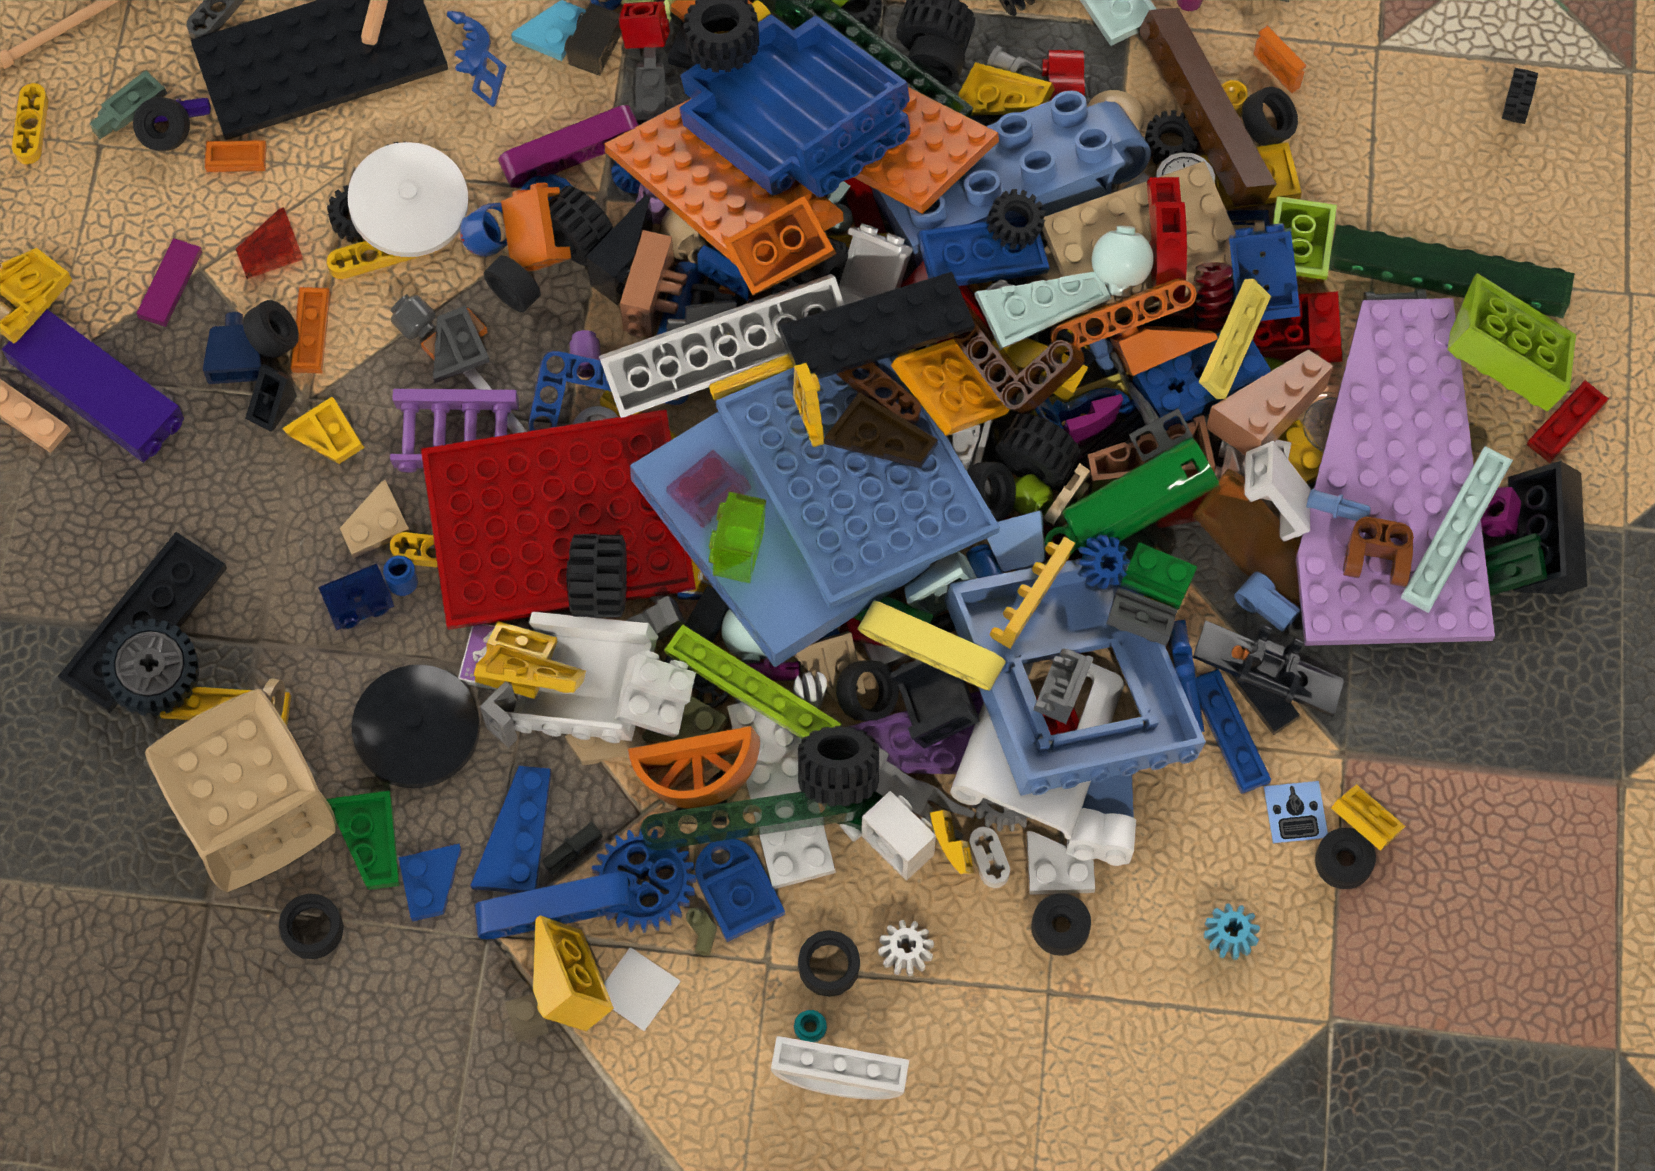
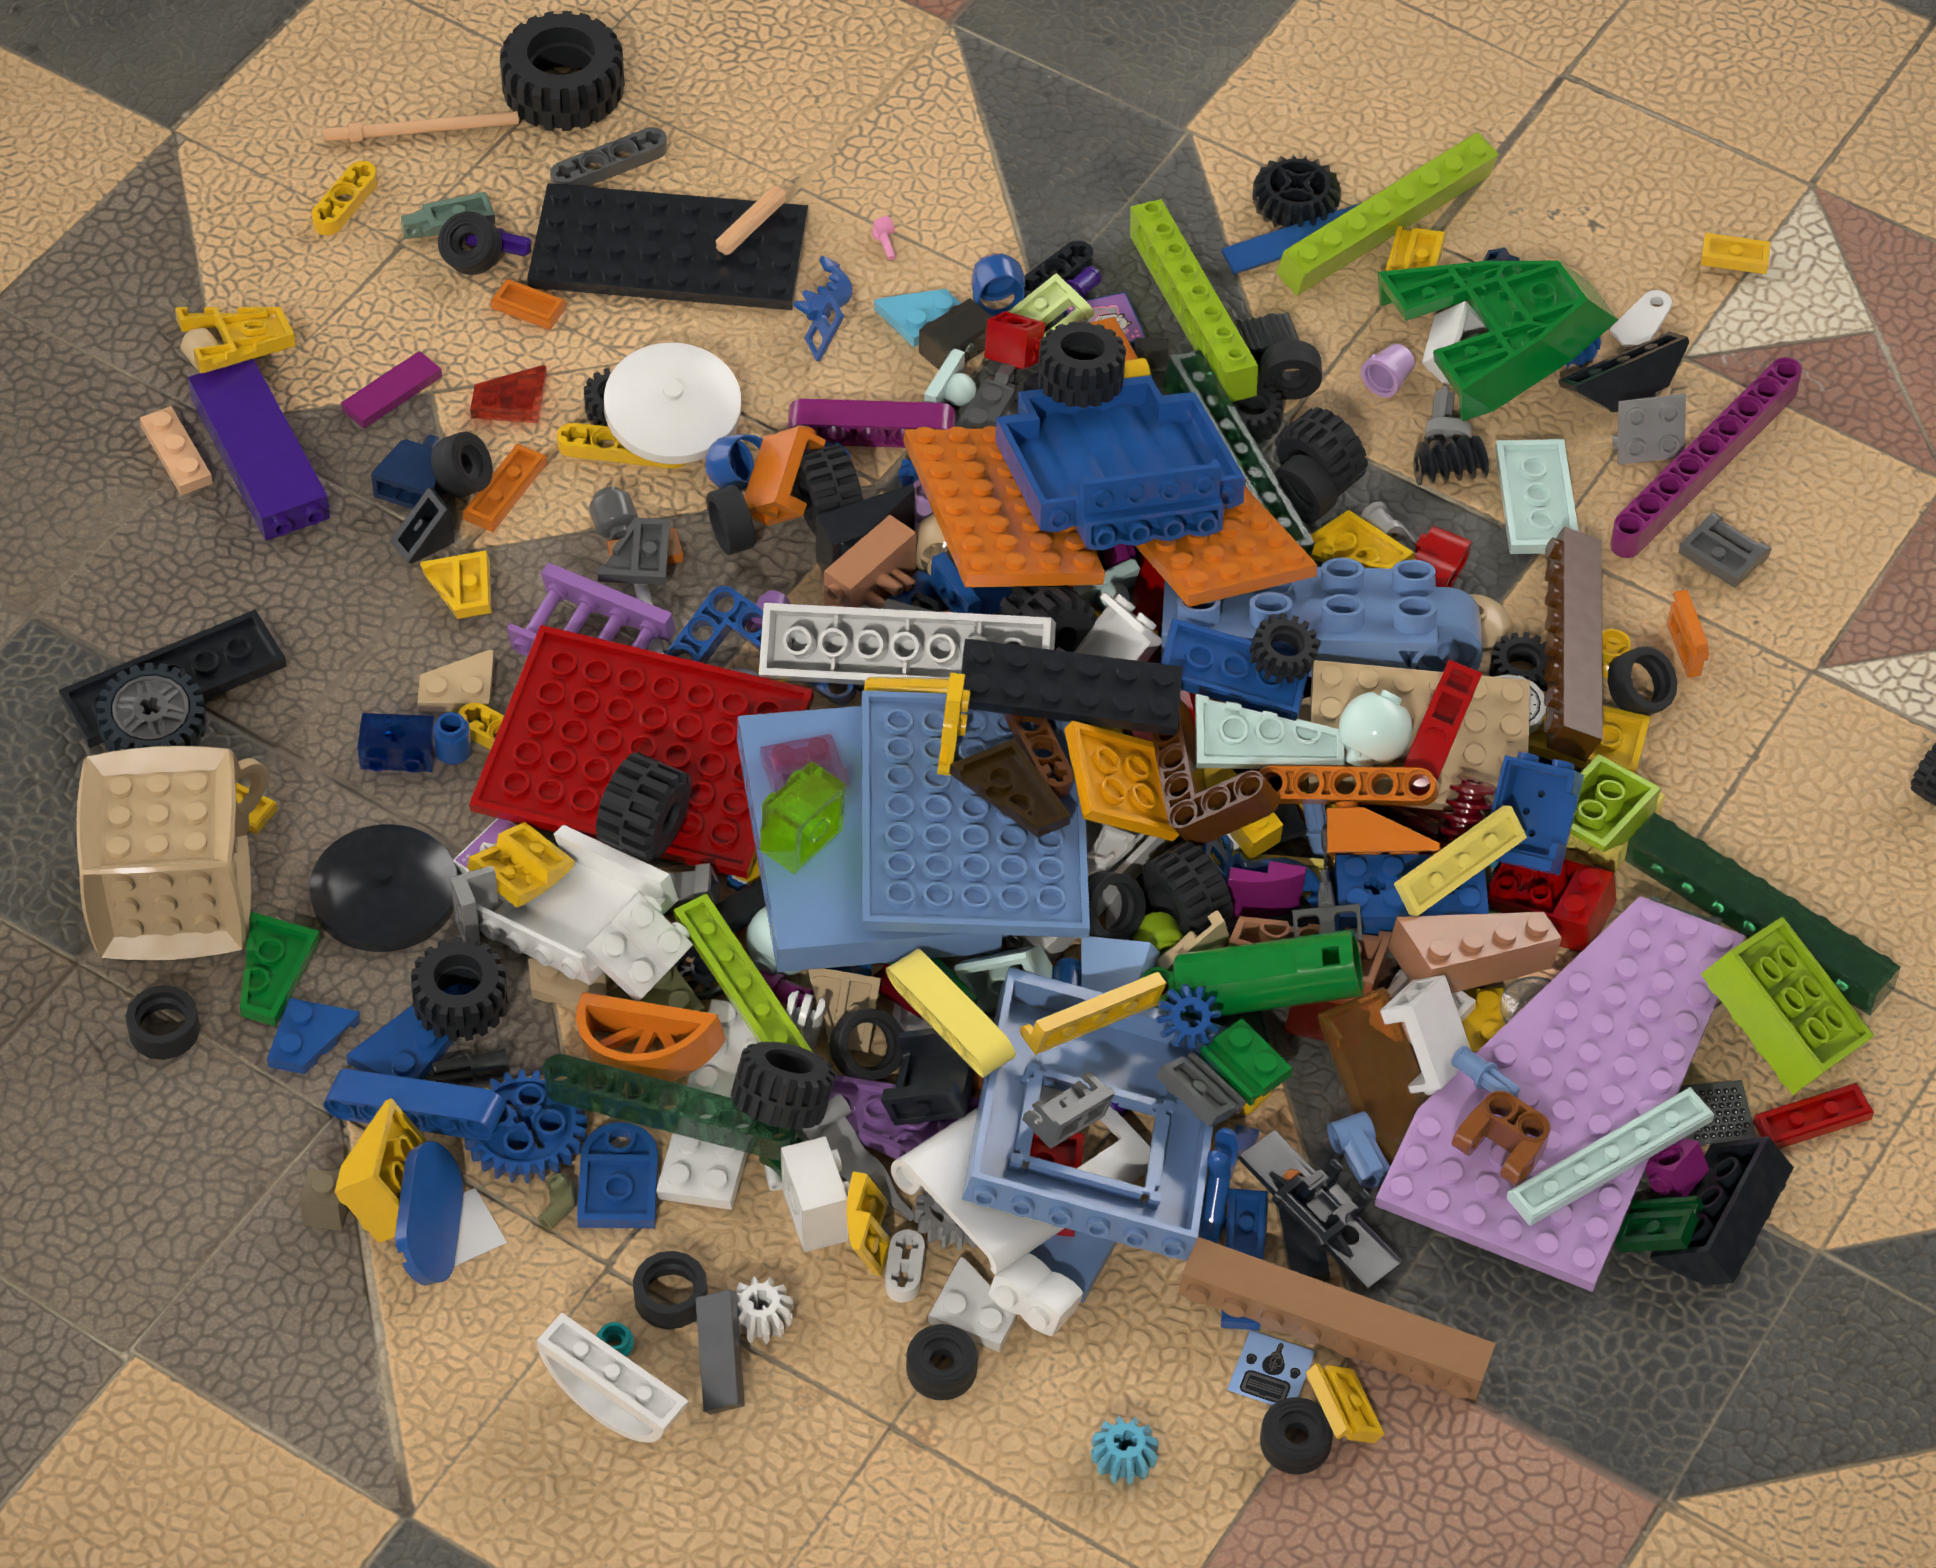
camera: 25 degrees right, 15 degrees down
(528, 669) = (523, 869): yellow wing -> none
(532, 769) = (453, 965): none -> black tyre
(614, 85) = (951, 382): none -> light aqua tile
(616, 992) = (429, 1213): none -> blue tile
(779, 246) = (1013, 569): orange slope -> none
(897, 999) = (720, 1352): none -> tile
(1327, 752) = (1336, 1319): none -> medium nougat brick
(1503, 439) = (1731, 1112): none -> dark grey sticker

